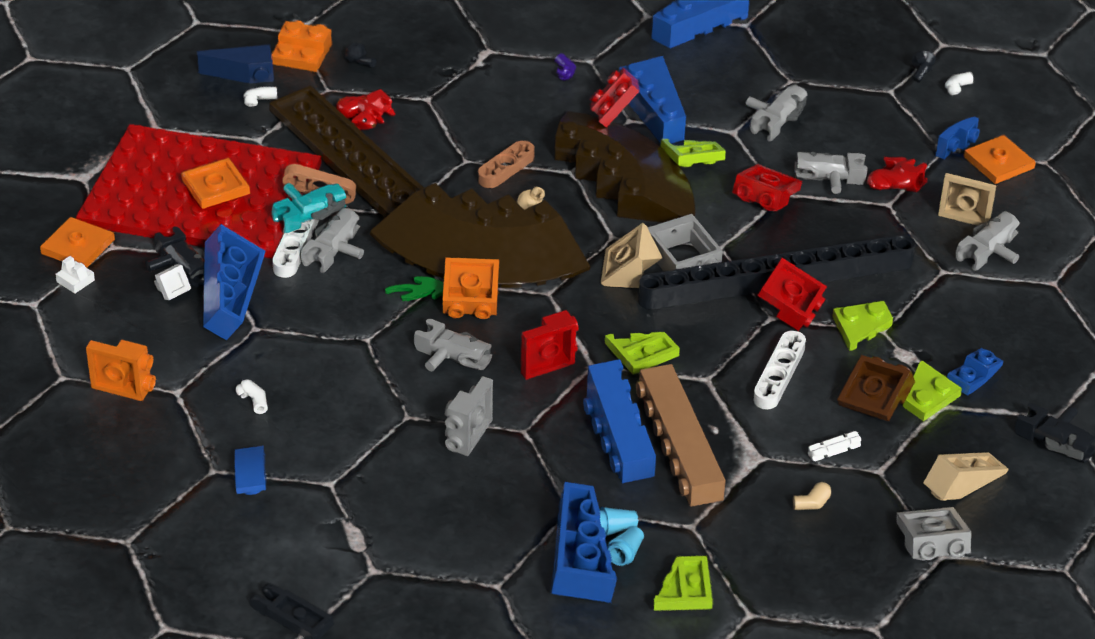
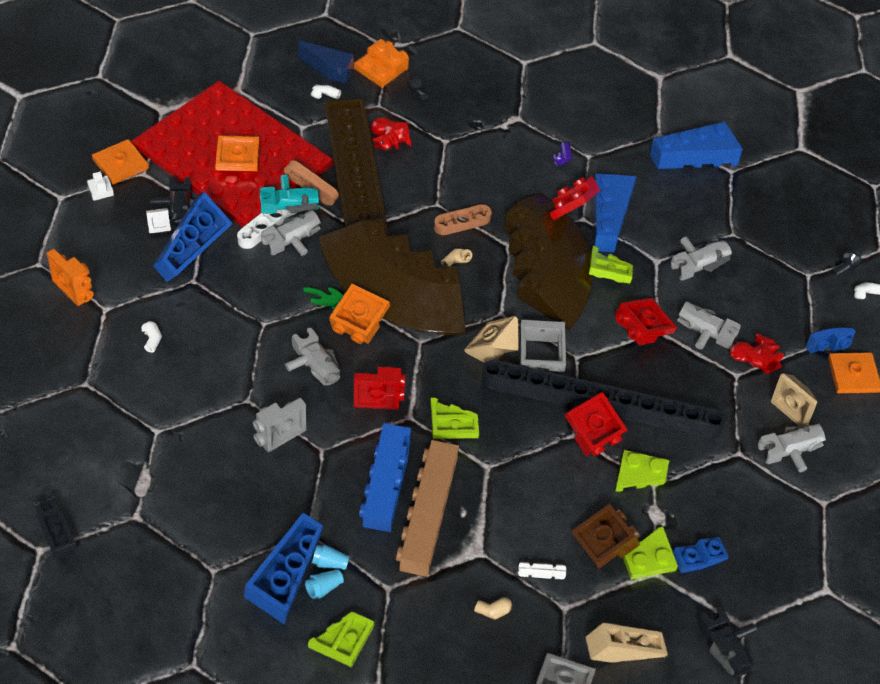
camera: 25 degrees right, 10 degrees up
(250, 470) = (104, 395): blue slope -> none
(776, 368) = (544, 482): white beam -> none

